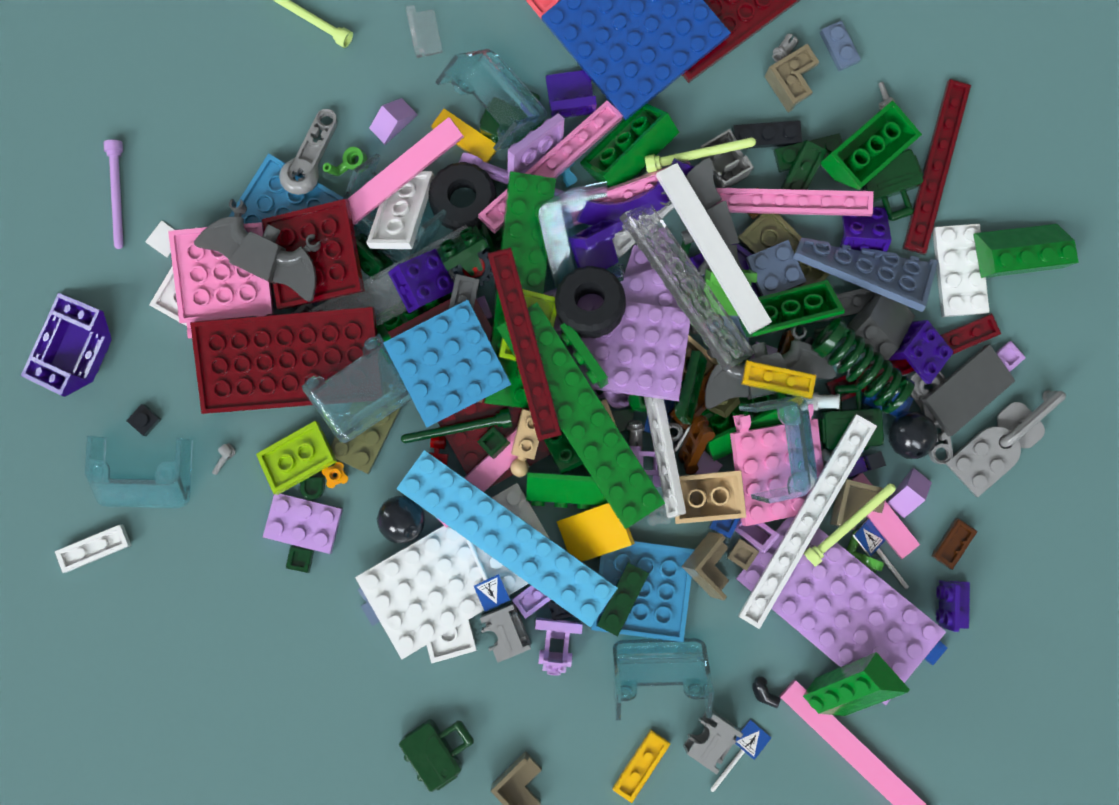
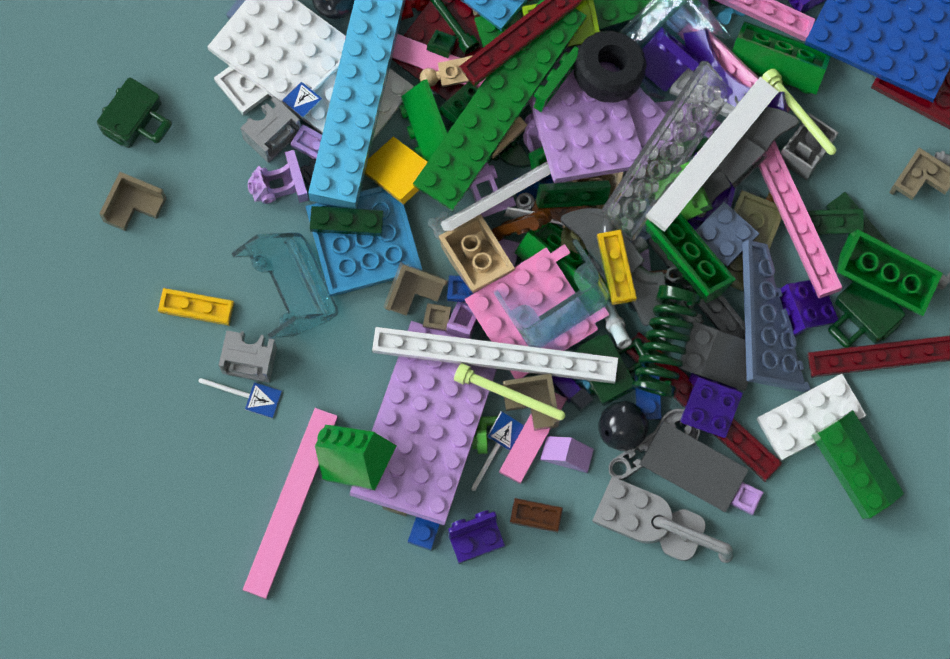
camera: 70 degrees right, 10 degrees down
(635, 433) = (509, 171): light grey pin -> none
(762, 694) = (310, 390): black arm -> none
(770, 134) = (856, 180): black plate -> none

